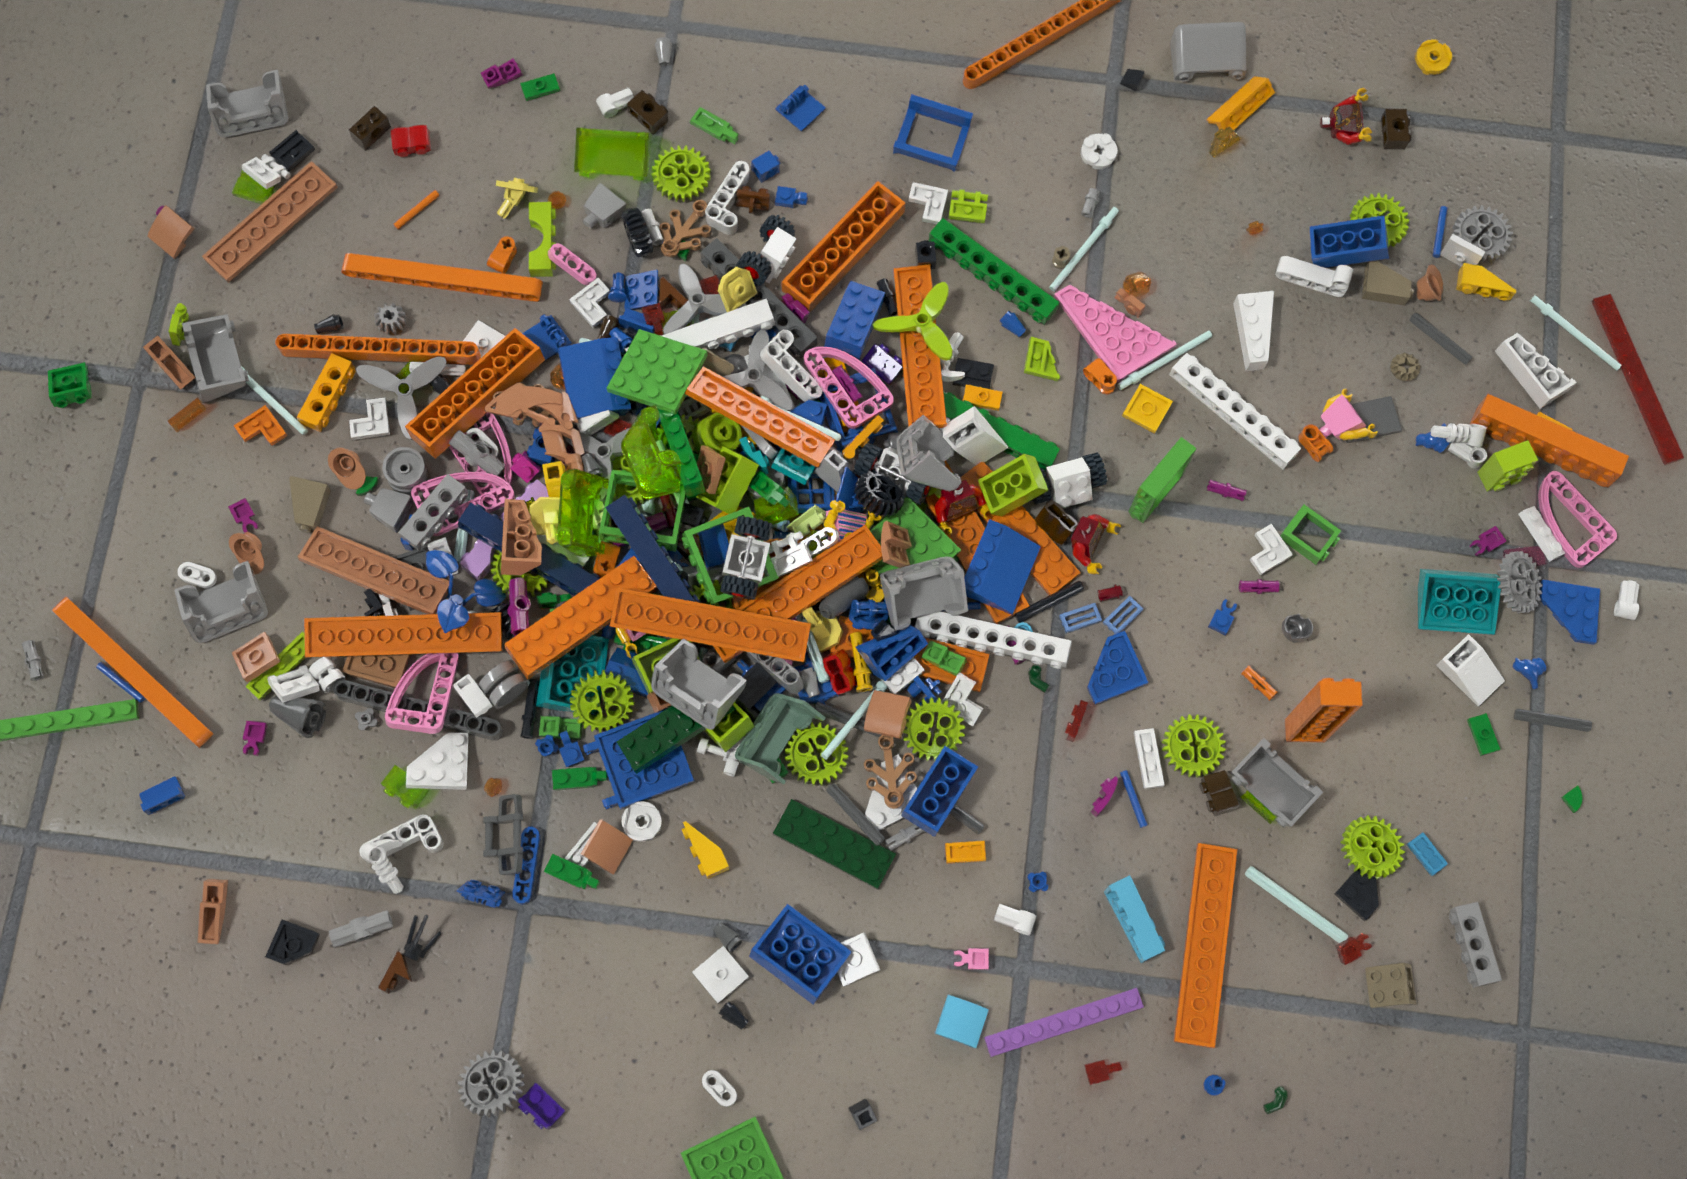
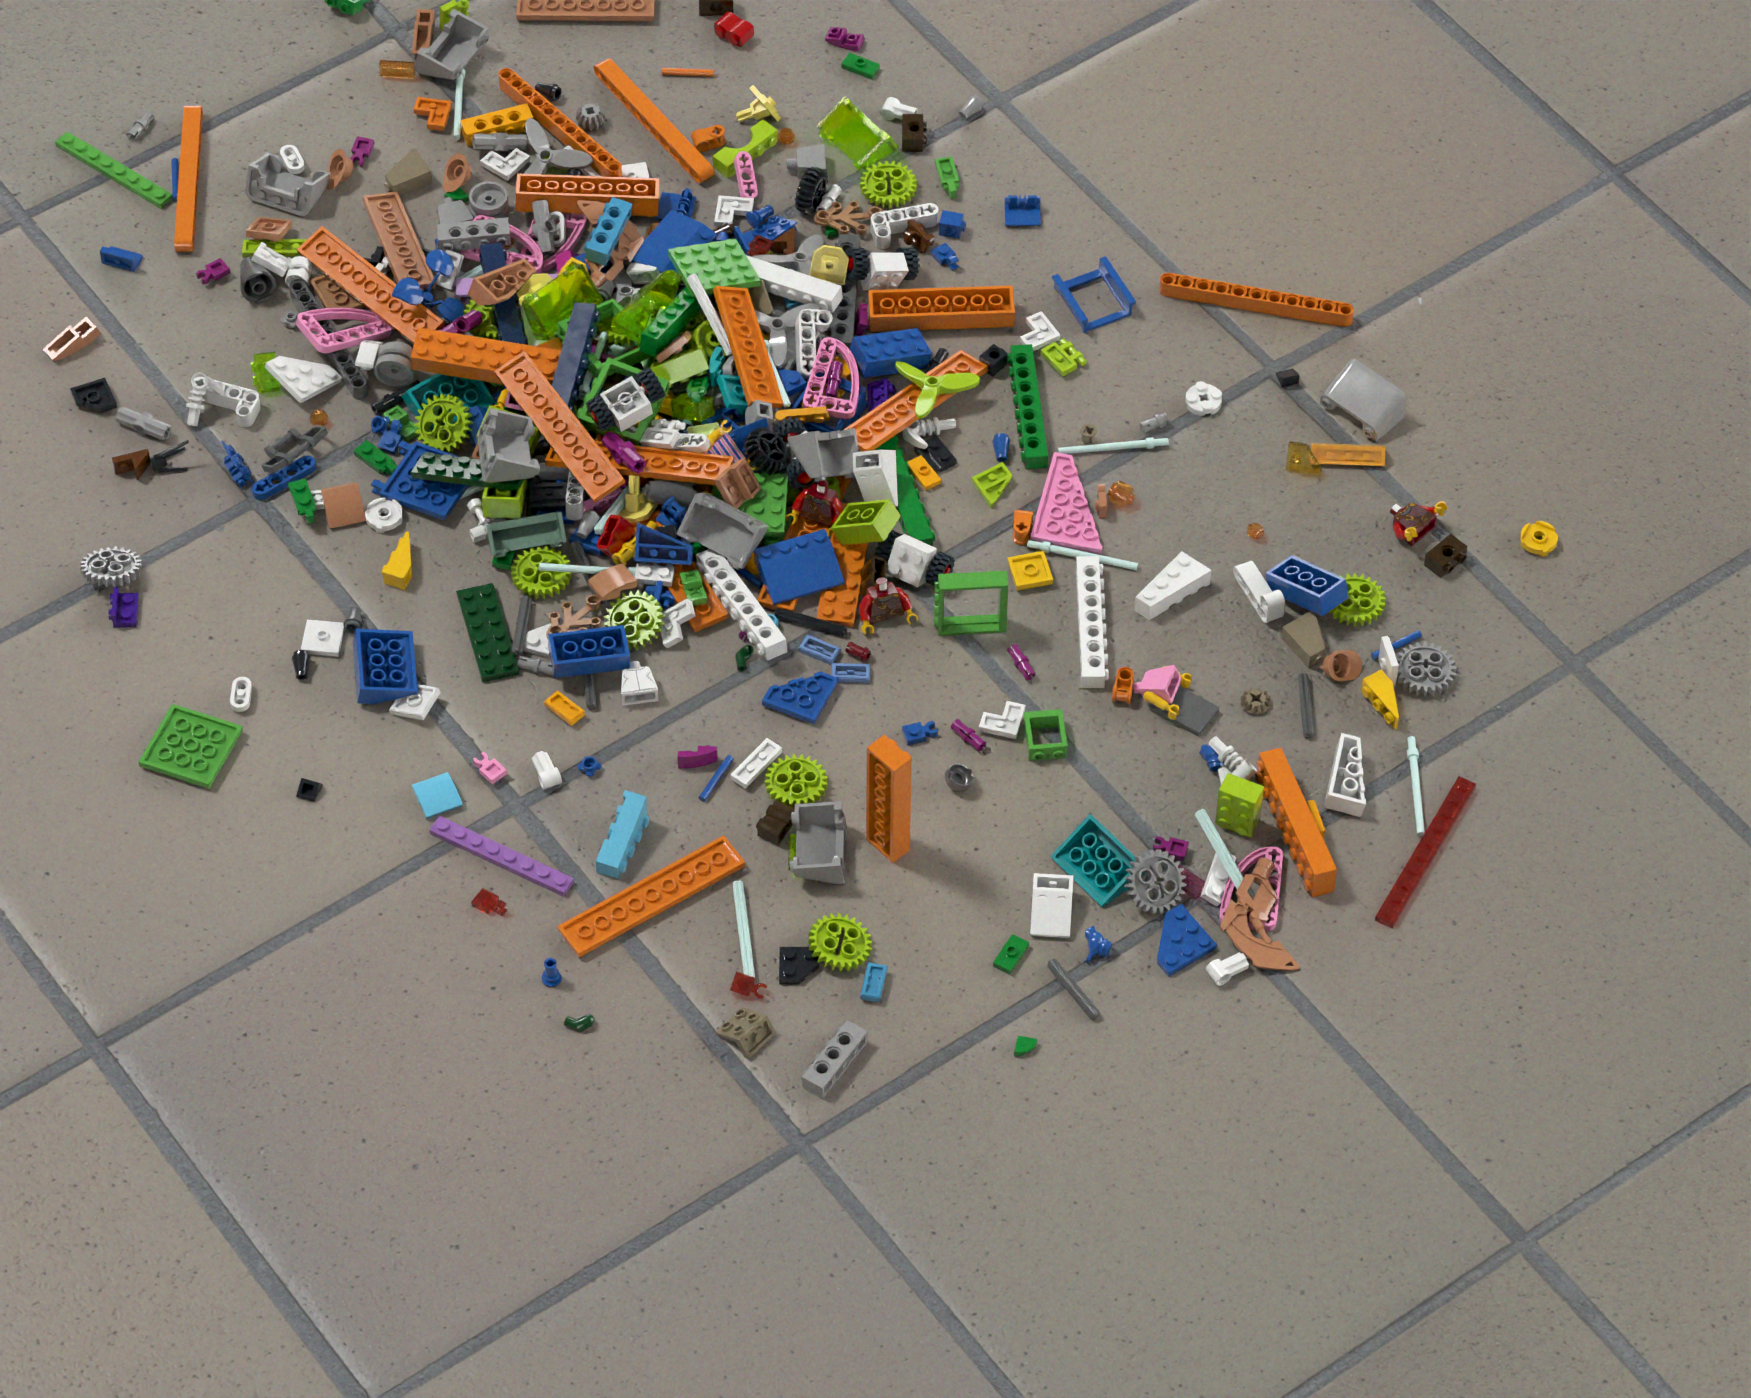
camera: 50 degrees right, 20 degrees down
(347, 407) = (499, 141): none -> light grey piece
(533, 388) = (608, 231): none -> dark azure brick
(705, 415) = (710, 312): none -> white axle
(783, 600) = (623, 452): none -> magenta piece
(995, 779) = (638, 685): none -> white torso
(1078, 713) = (736, 700): clear red plate -> none
(1542, 517) = (1221, 849): none -> light aqua axle
(1637, 562) = (1260, 951): none -> nougat piece

